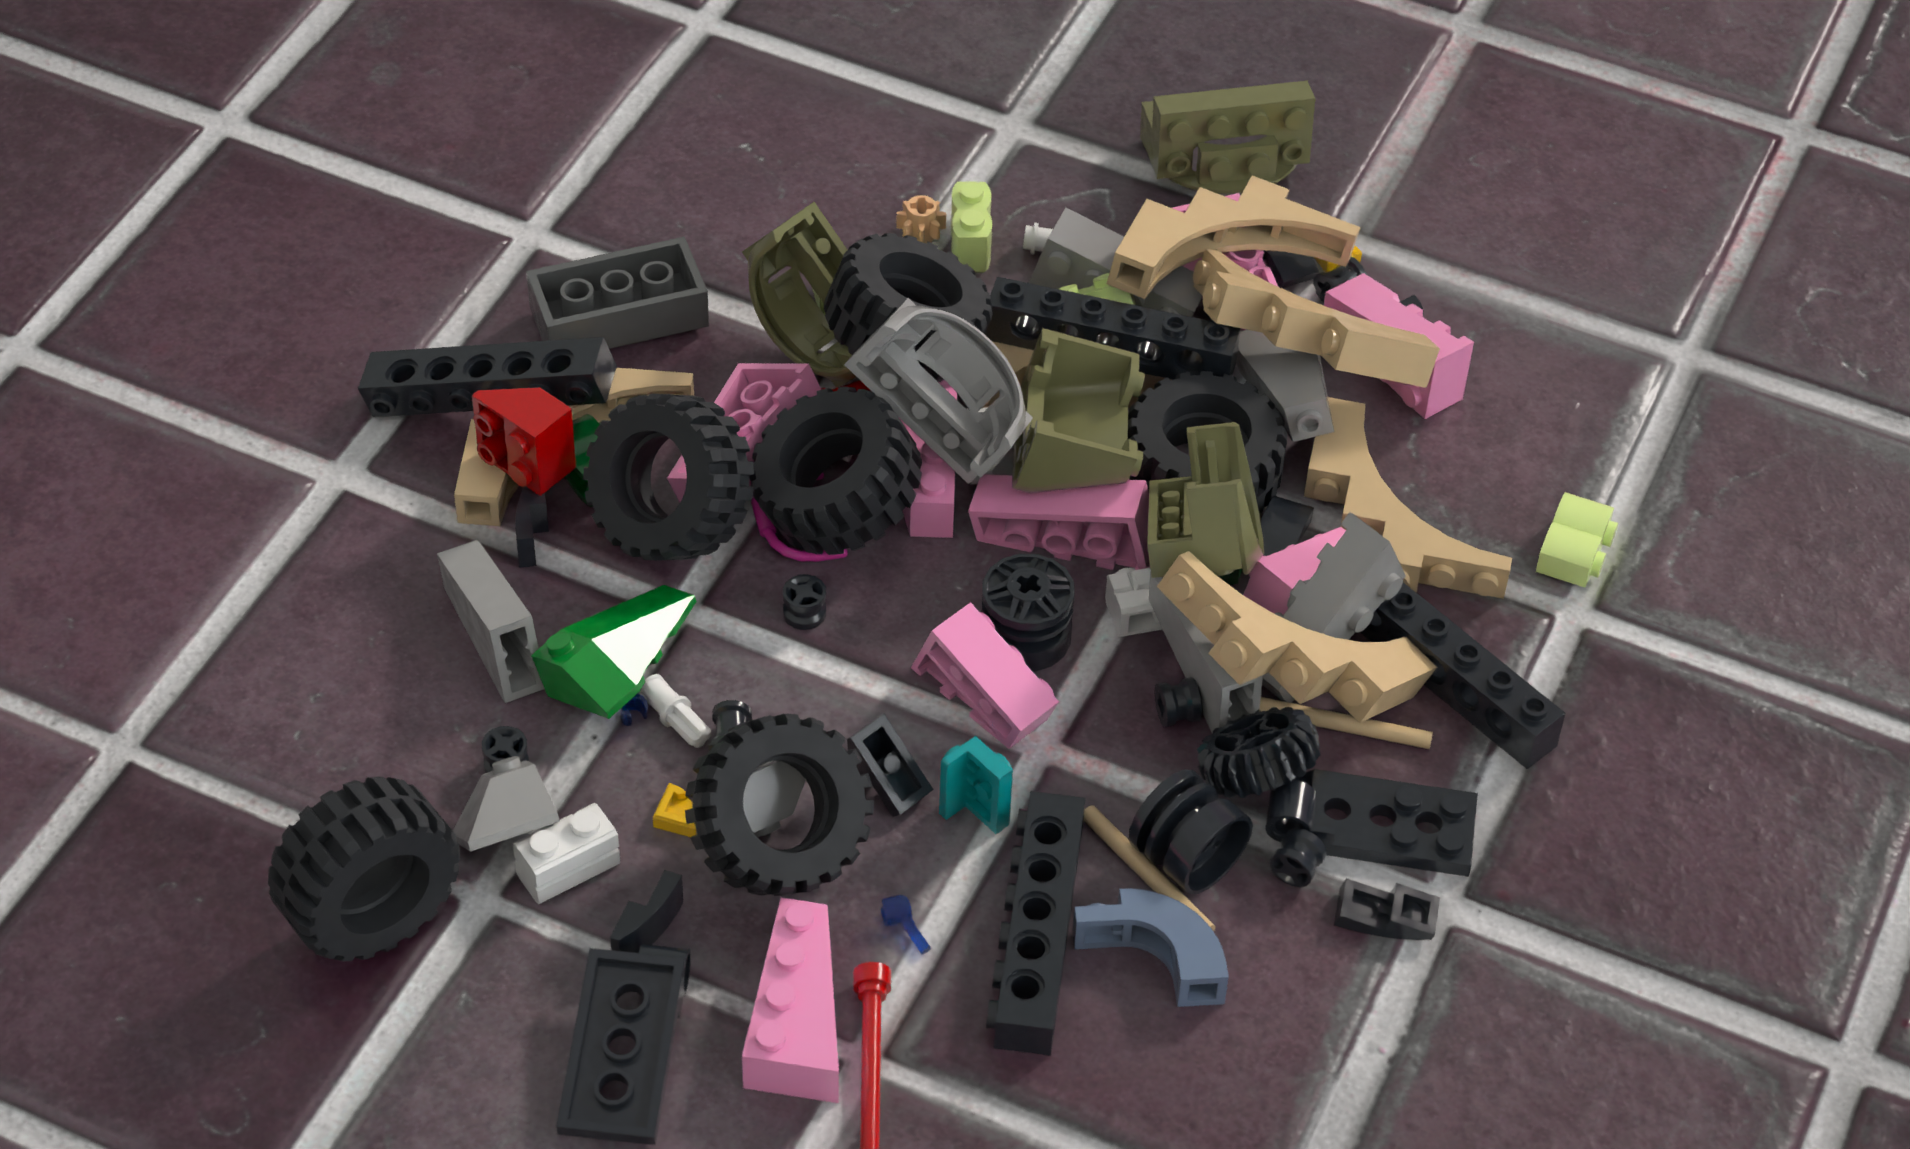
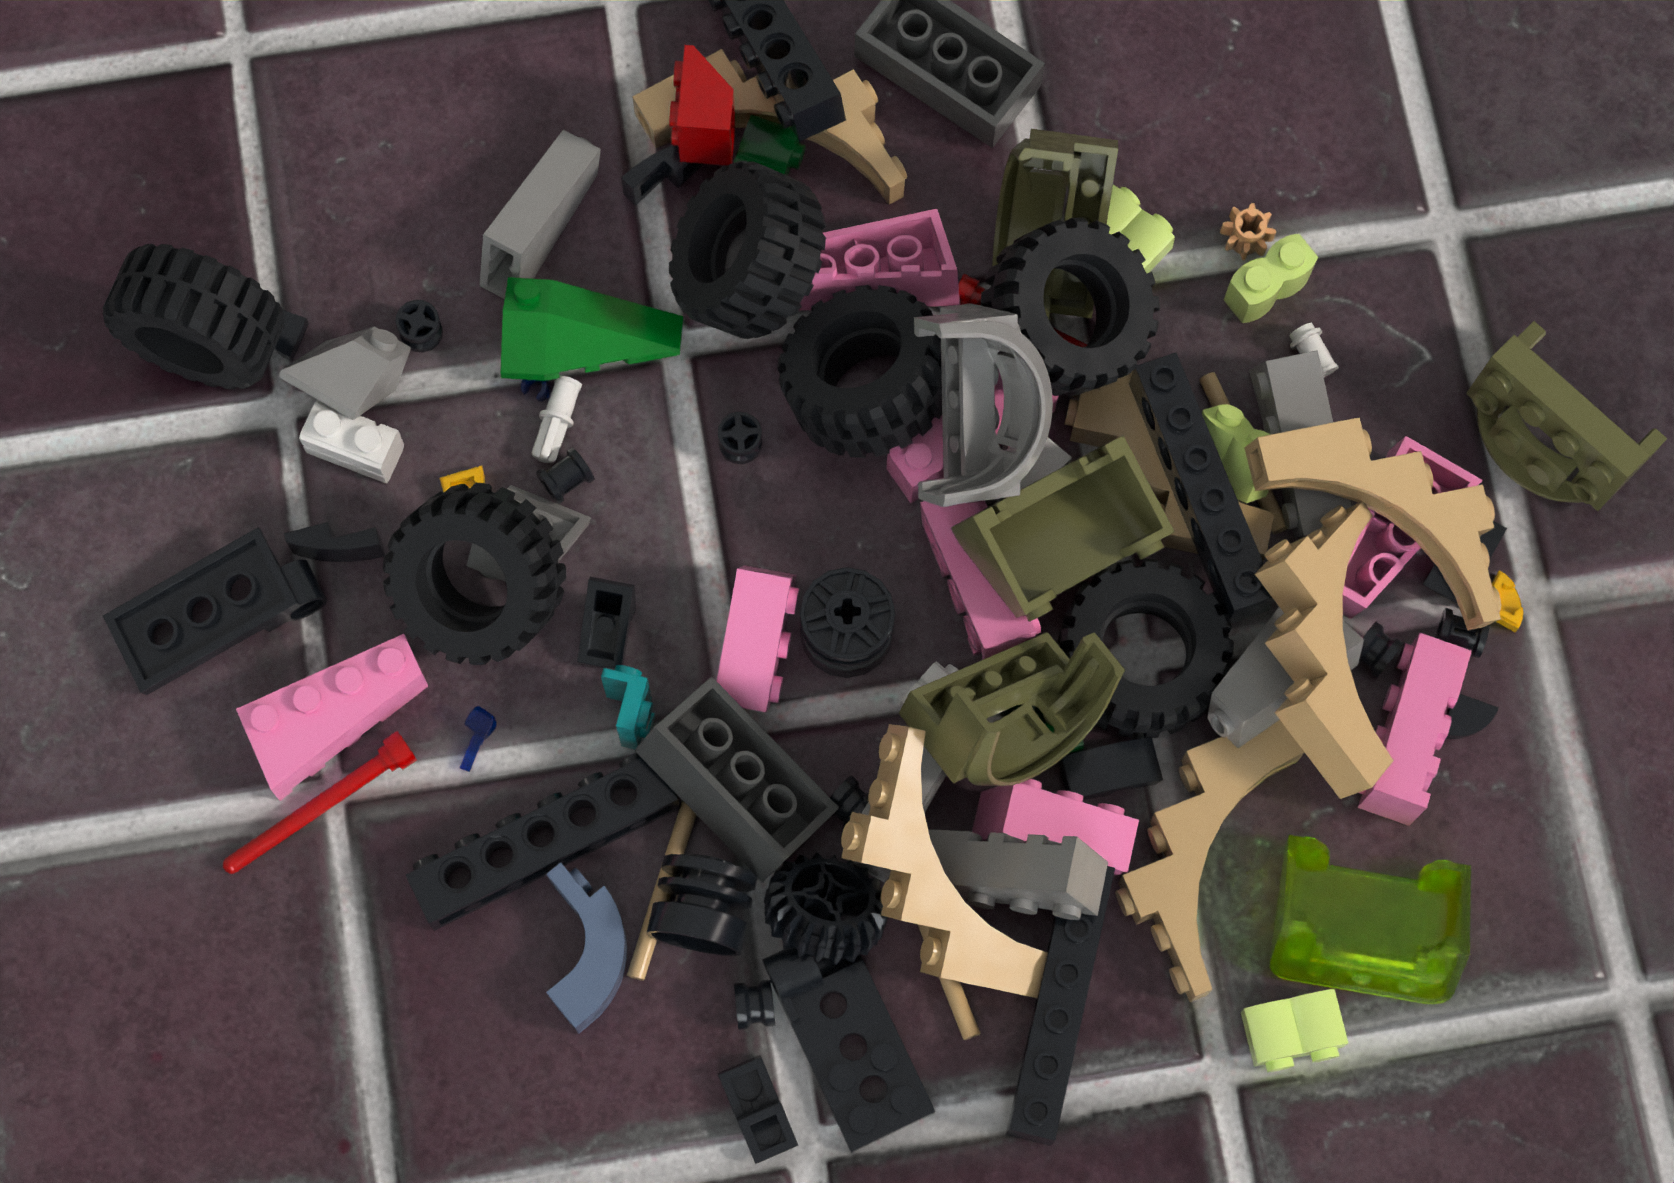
camera: 55 degrees right, 25 degrees up
(1101, 744) = (736, 778): none -> dark grey brick
(1549, 445) = (1371, 927): none -> clear neon green windscreen

